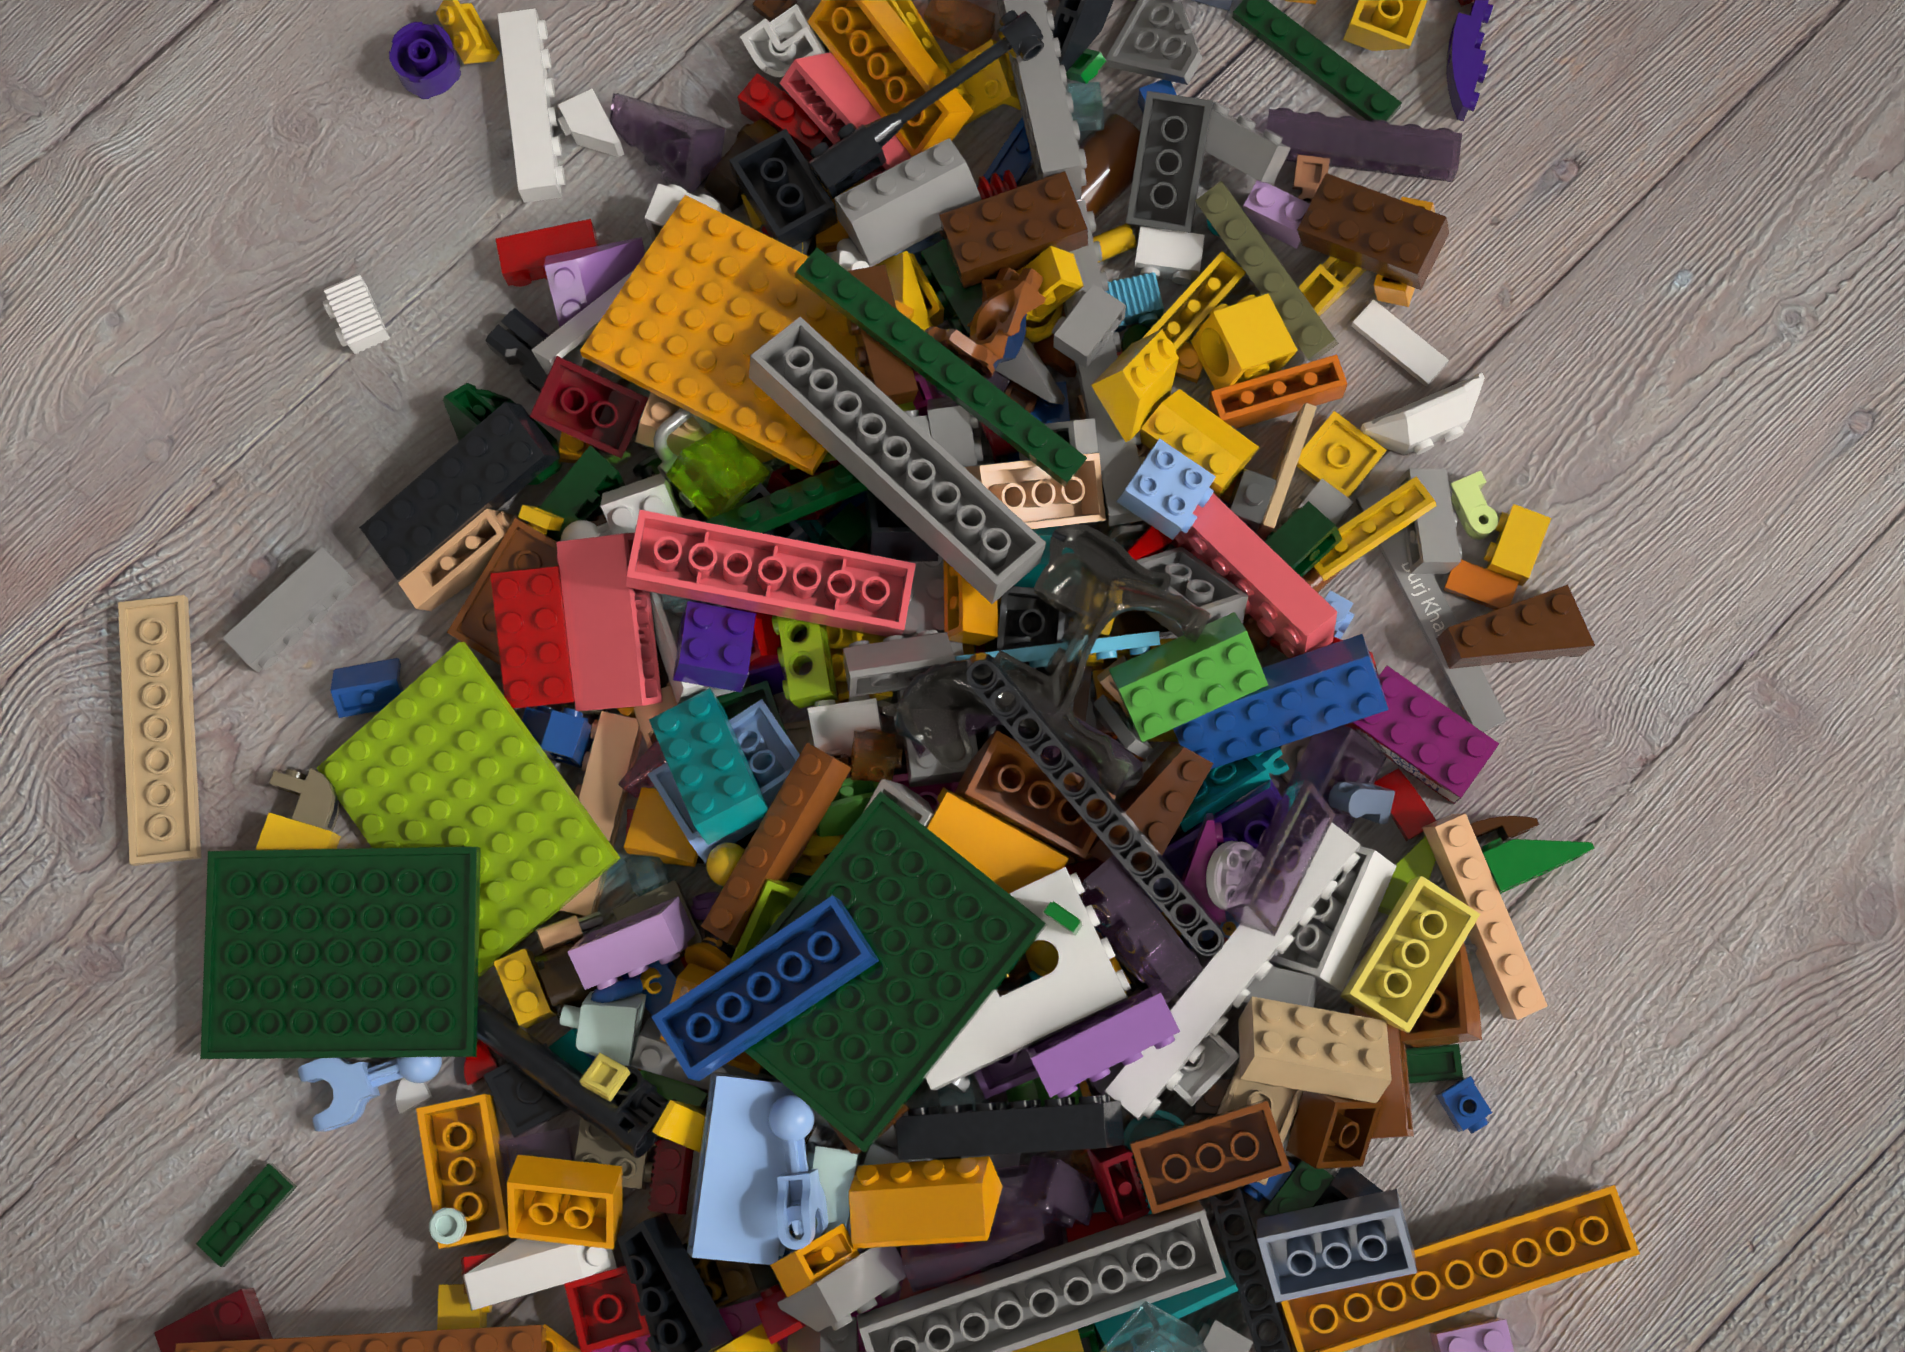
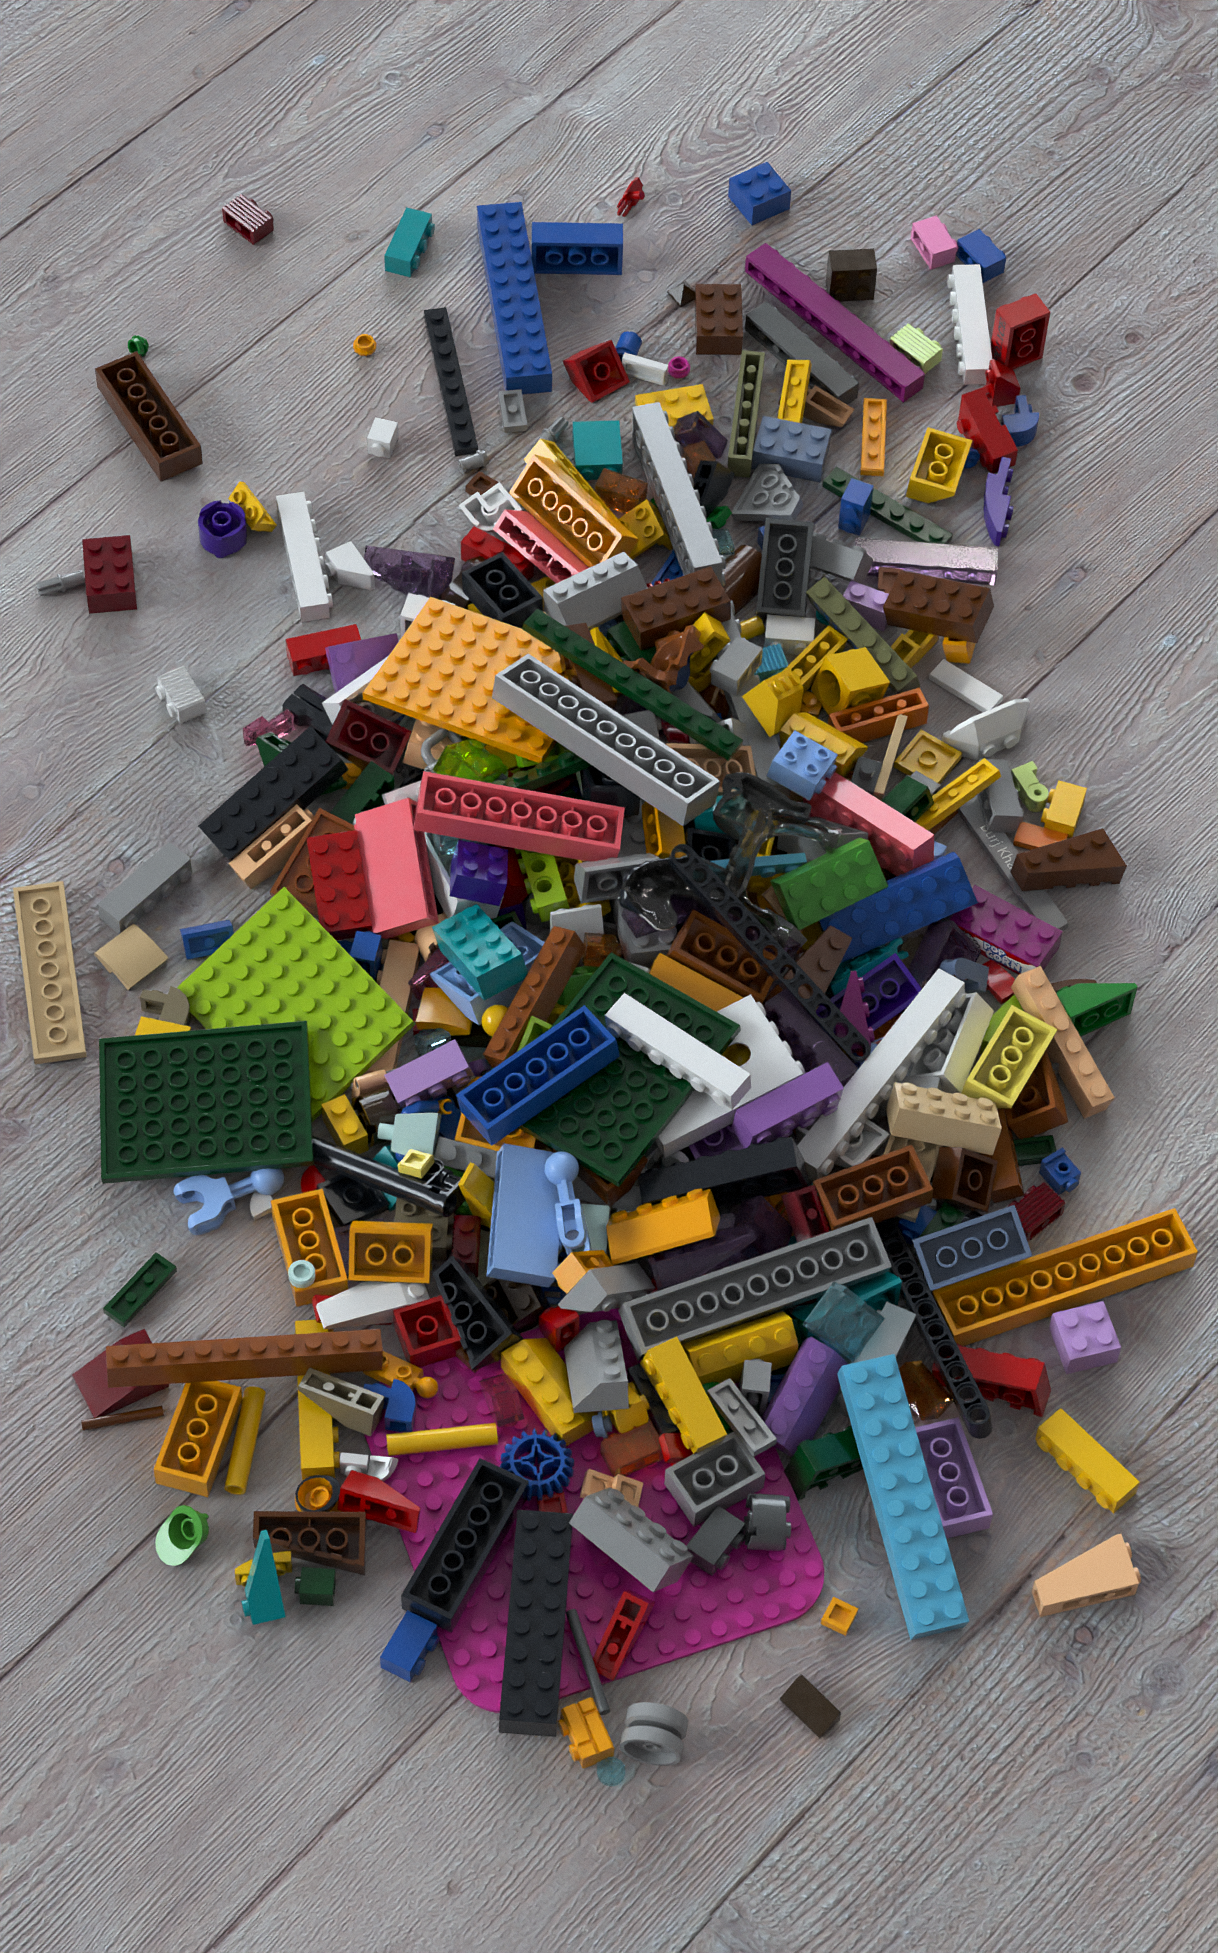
camera: 10 degrees left, 20 degrees down
(210, 133) = (60, 583): none -> light grey axle
(266, 710) = (131, 956): none -> tan slope
(273, 124) = (109, 574): none -> dark red brick
(455, 374) = (279, 725): none -> clear pink slope
(540, 519) = (337, 809): yellow plate -> none
(861, 148) = (561, 561): black bar -> none
(957, 965) = (678, 1051): none -> white brick
(1063, 917) = (752, 1021): green tile -> none
(1226, 870) = (874, 1011): white tile -> none
(1273, 60) = (855, 507): none -> blue brick
(1281, 859) = (908, 989): clear purple slope -> none
(1424, 1164) = (1038, 1209): none -> dark red brick

